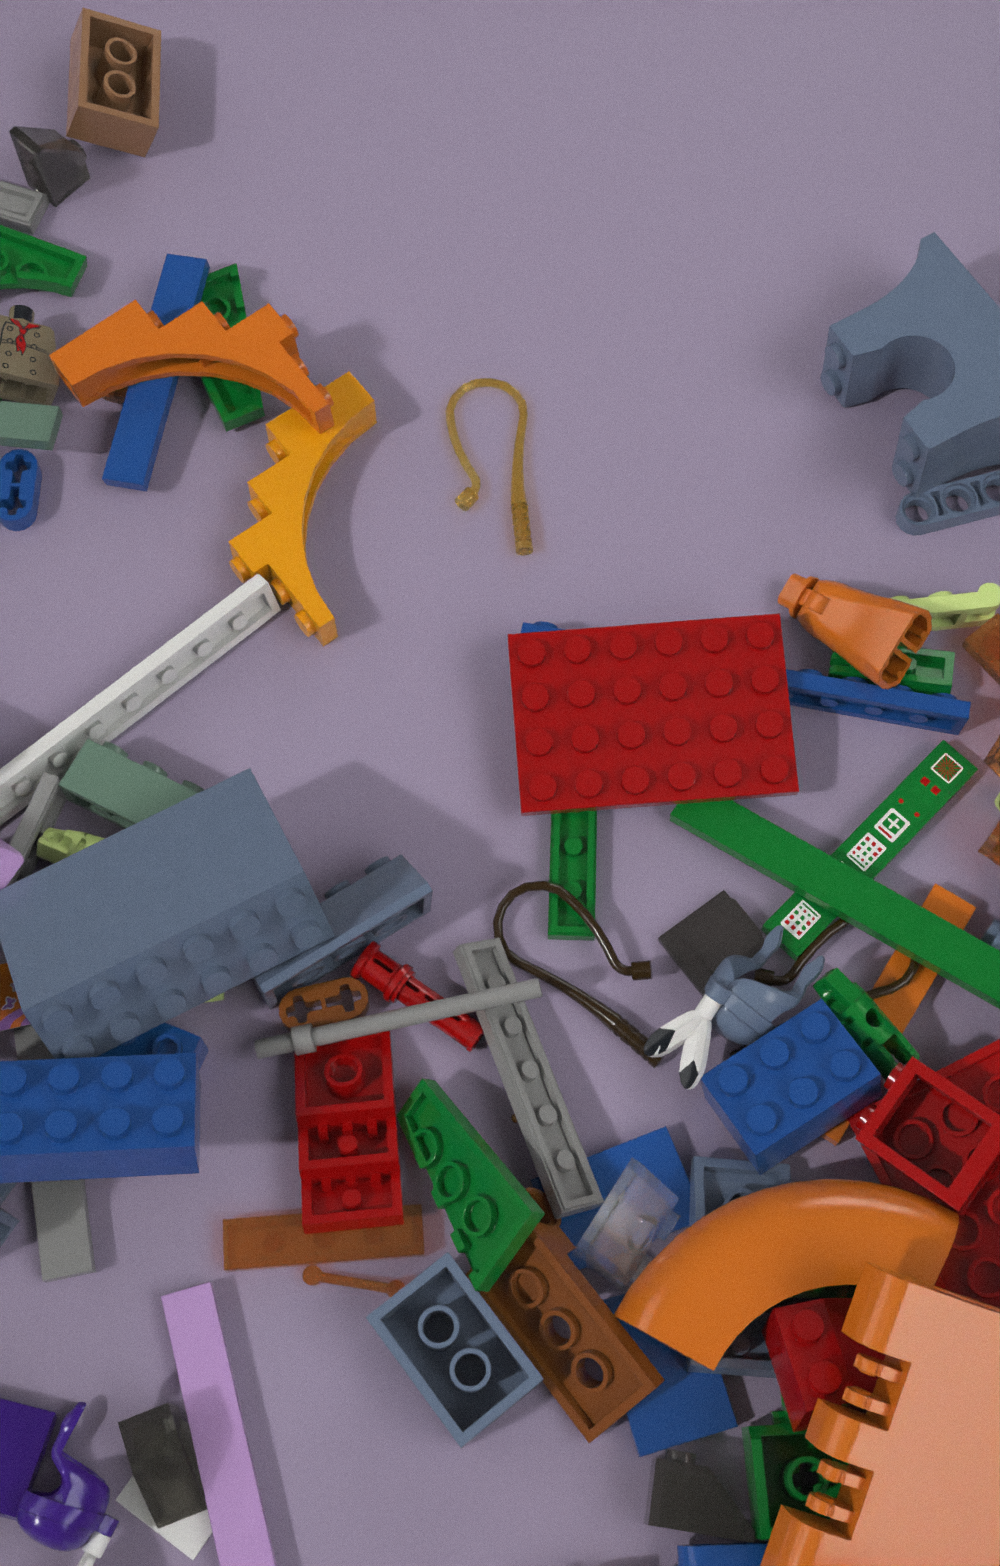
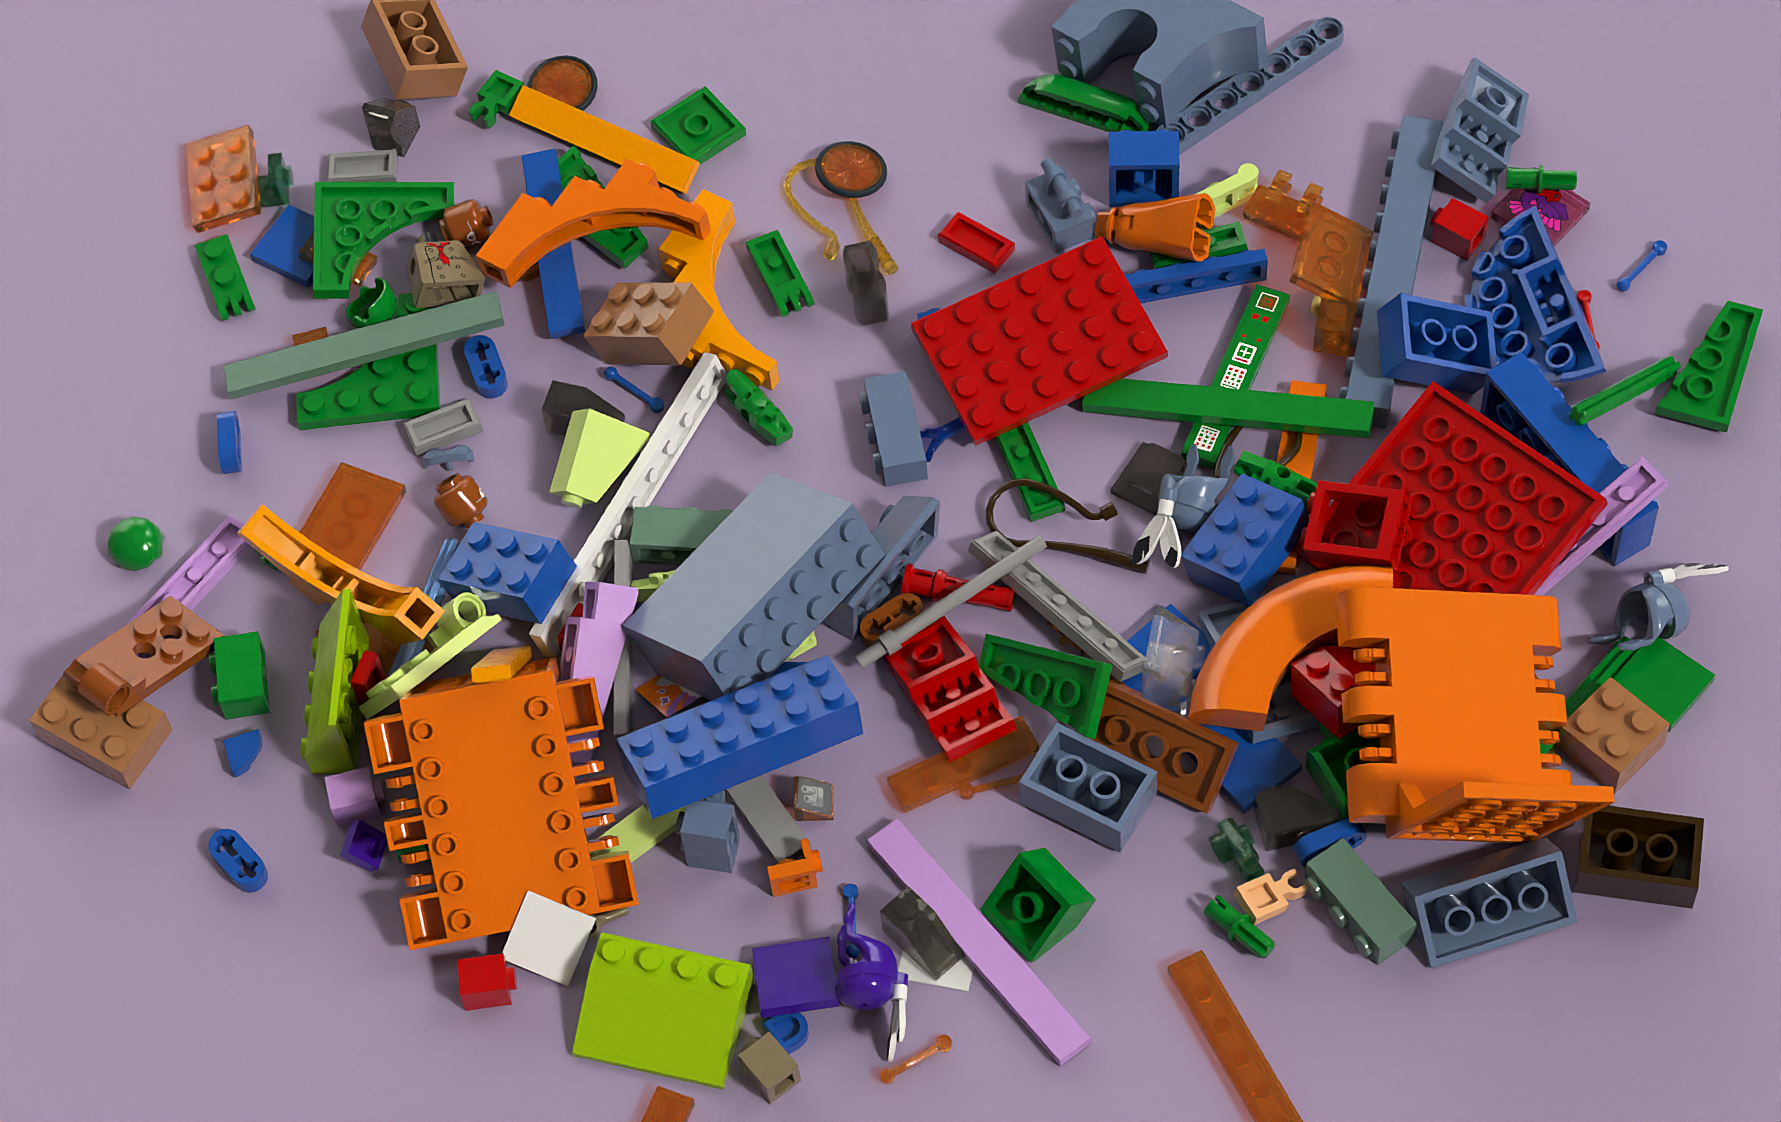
camera: 15 degrees left, 10 degrees down
(46, 1303) = (795, 875): none -> orange bracket
(73, 655) = (594, 456): none -> yellowish green slope
(74, 309) = (467, 223): none -> dark orange head
(90, 592) = (566, 398): none -> clear smoke slope
(113, 1356) = (850, 893): none -> blue hinge
(123, 1209) = (813, 799): none -> slope
(183, 173) = (495, 95): none -> green plate
(184, 610) = (656, 404): none -> blue hinge
(208, 513) = (648, 323): none -> medium nougat brick
(260, 189) = (566, 80): none -> clear orange wheel
(275, 269) = (602, 137): none -> light orange tile
(291, 666) = (757, 408): none -> green hinge
(325, 1483) = (1037, 903): none -> green slope
(386, 294) = (698, 126): none -> green tile
(393, 504) = (779, 272): none -> green hinge
(435, 756) = (893, 429): none -> sand blue brick
(482, 558) = (865, 283): none -> clear smoke brick
(486, 784) = (941, 434): none -> clear blue bar
(531, 409) = (851, 169): none -> clear orange wheel
(605, 1505) = (1237, 844): none -> clear green plate
(636, 554) = (976, 242): none -> red tile
(749, 550) = (1059, 207): none -> sand blue brick
(835, 434) = (1083, 103): none -> green brick
(868, 541) = (1143, 166): none -> blue brick

